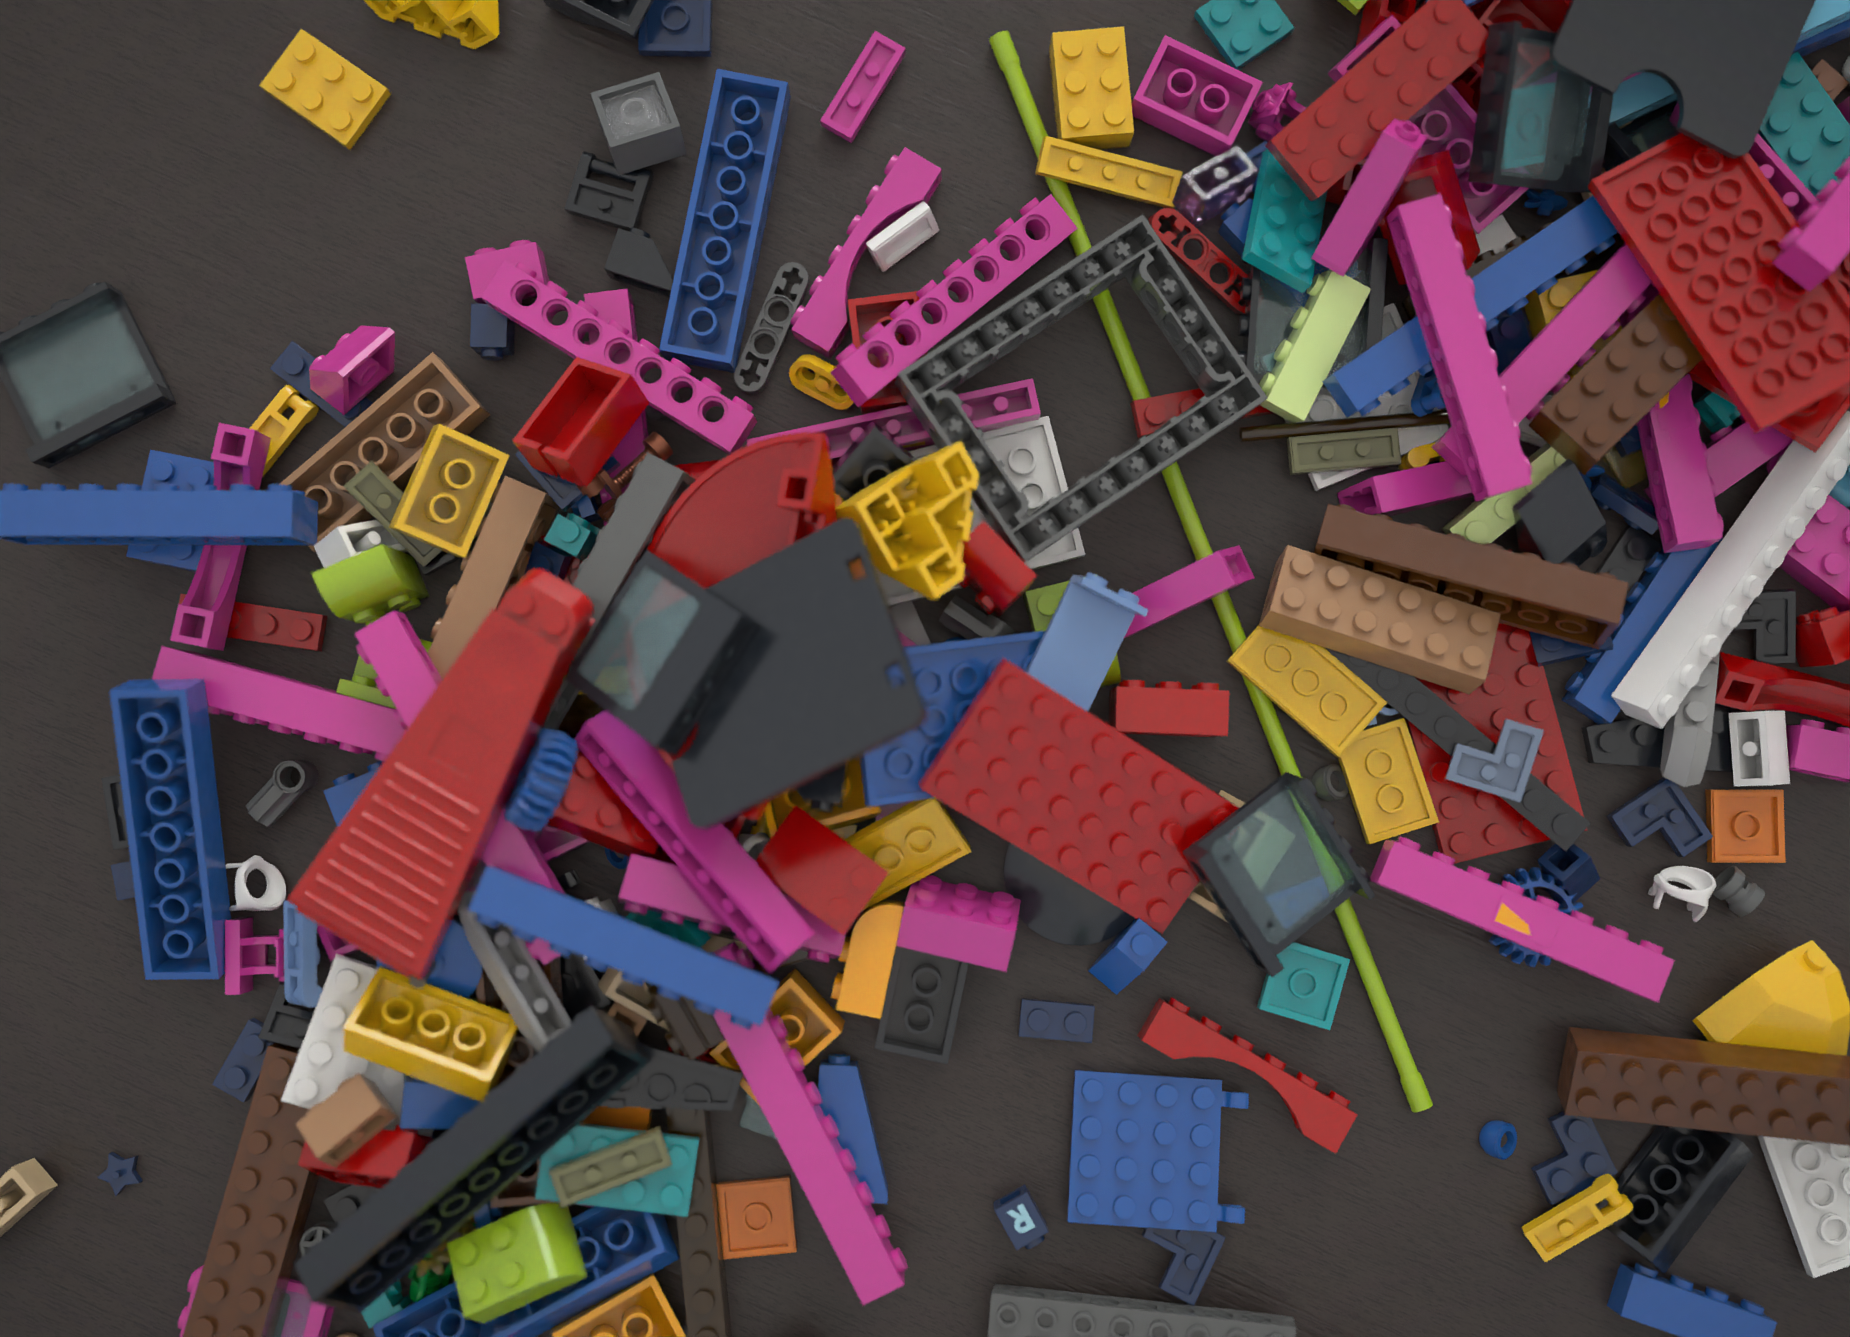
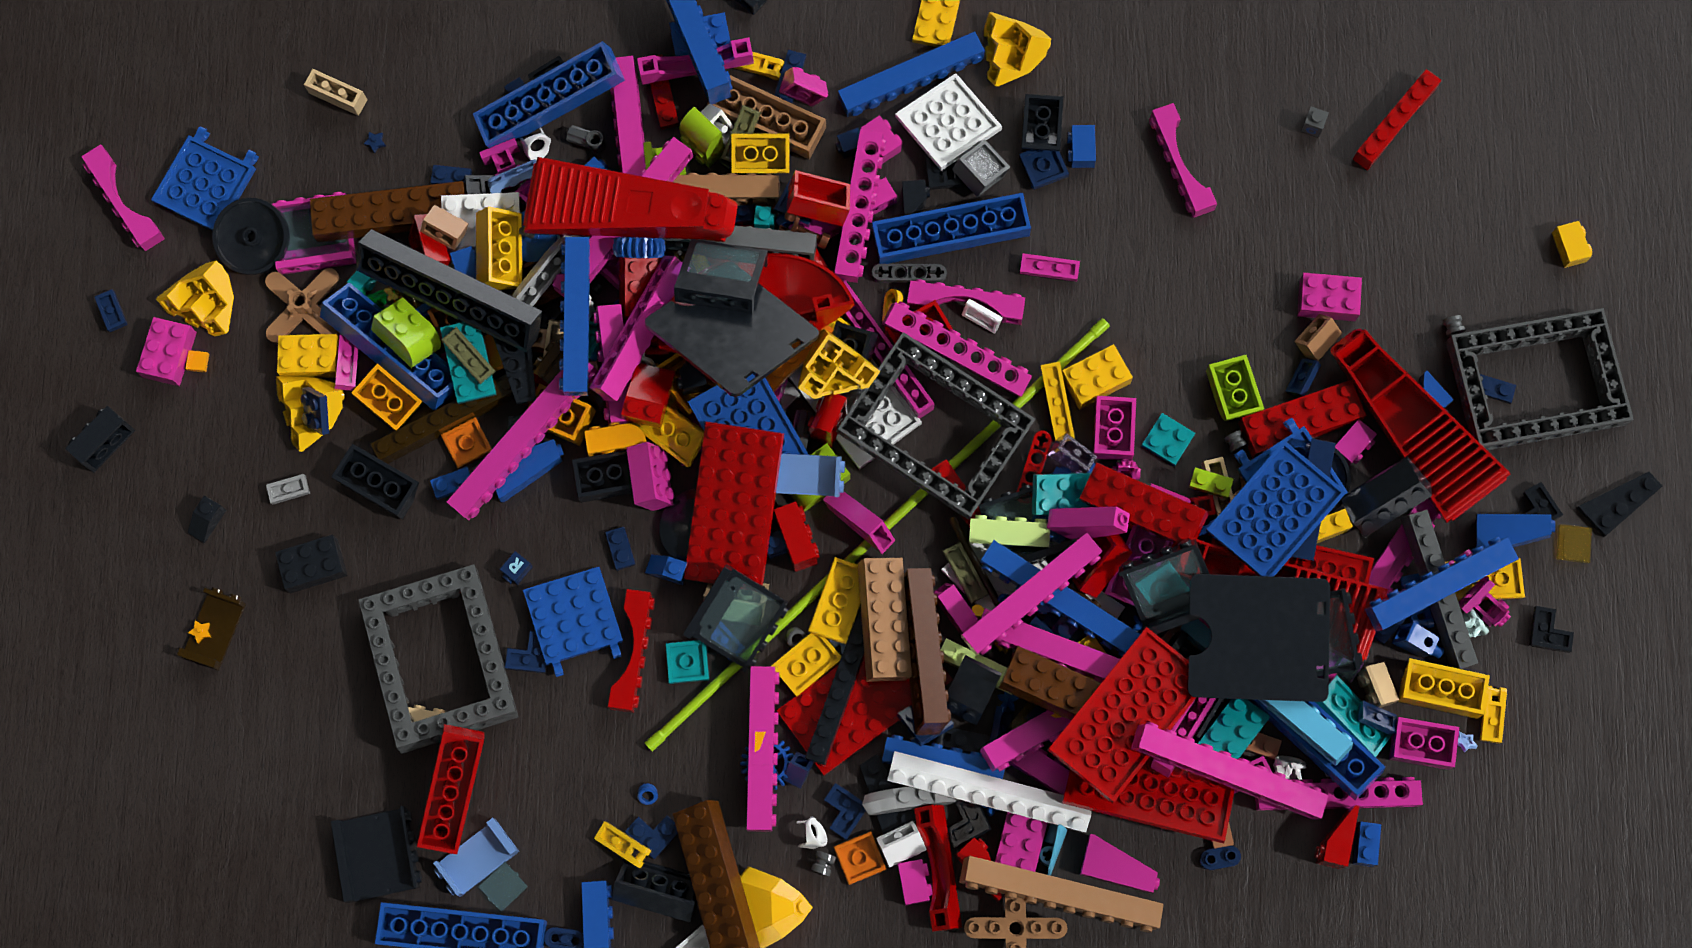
camera: 70 degrees right, 10 degrees down
(410, 173) = (911, 74): none -> blue brick
(527, 145) = (948, 121): none -> white plate
(818, 1272) = (449, 483): none -> blue plate
(1166, 746) = (776, 544): none -> dark blue brick
(1506, 769) = (835, 708): sand blue plate -> none

